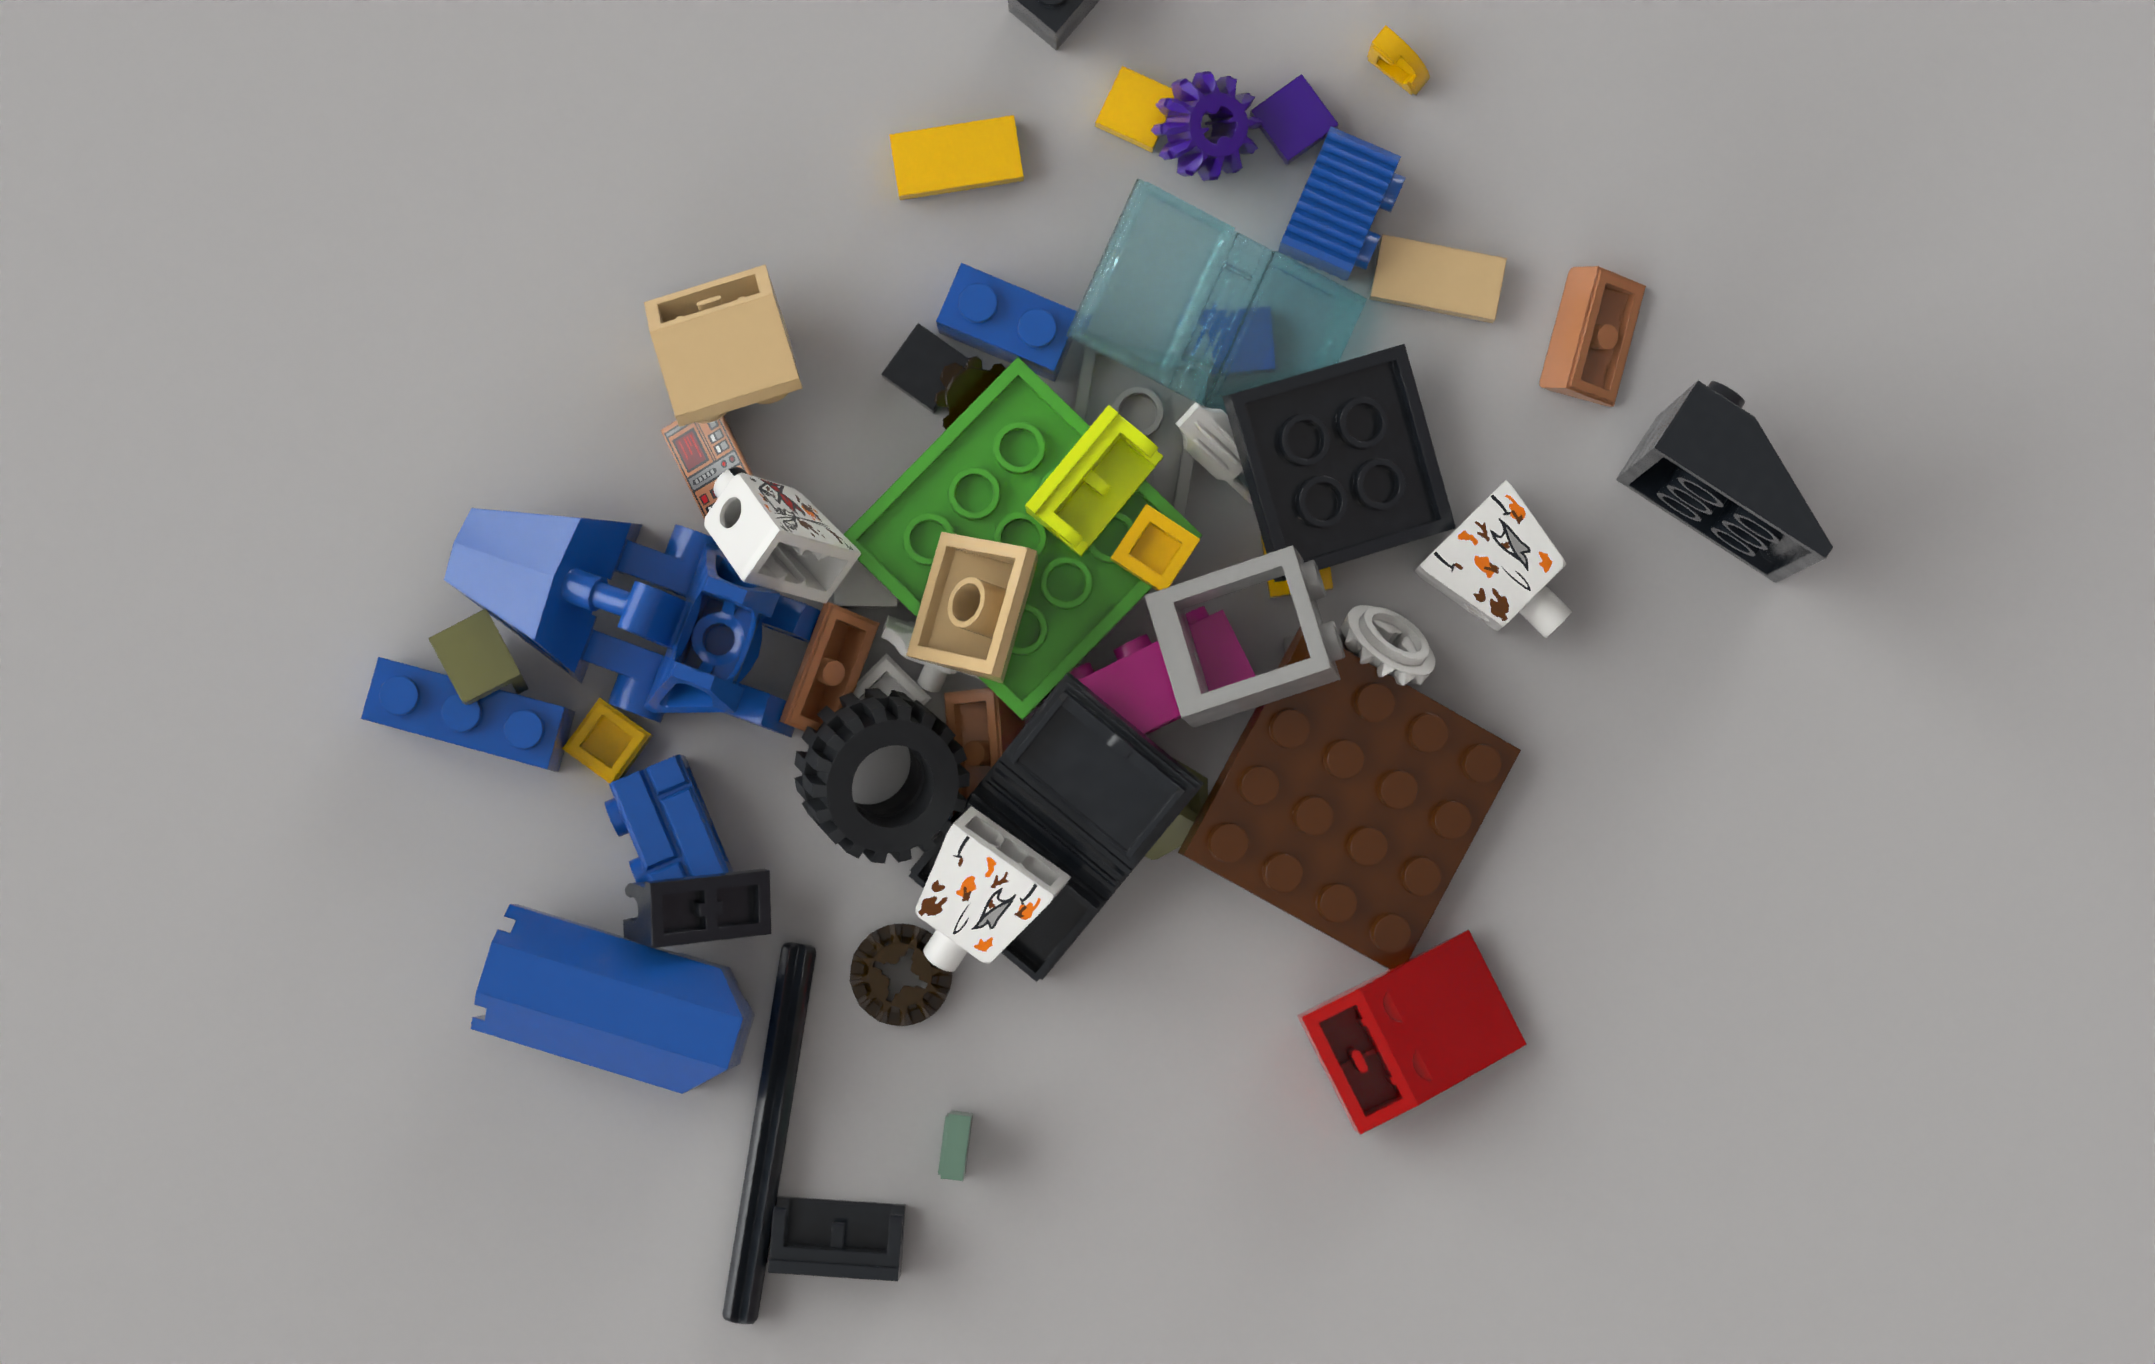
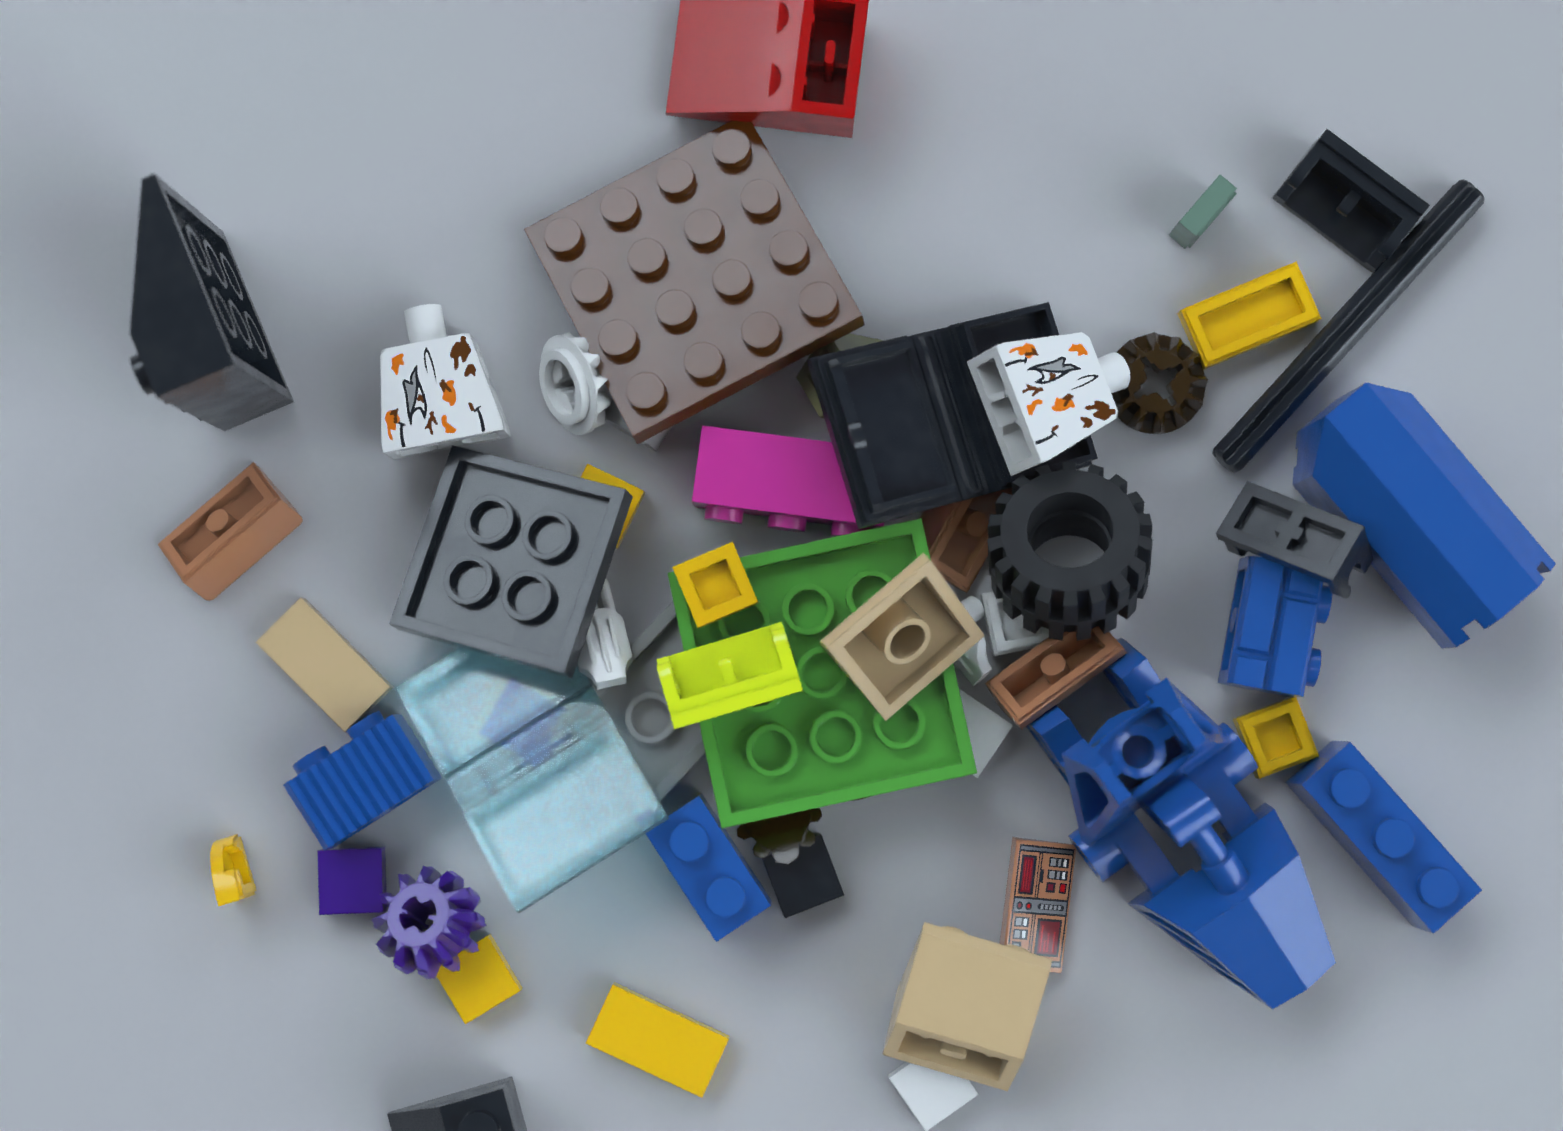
camera: 145 degrees left, 0 degrees up
(476, 658) = (1349, 874): olive panel -> none
(704, 260) = (931, 1093): none -> white tile
(757, 524) = (1029, 808): white torso -> none
(859, 1086) = (1249, 315): none -> yellow tile
(1194, 700) = (753, 479): light grey window -> none

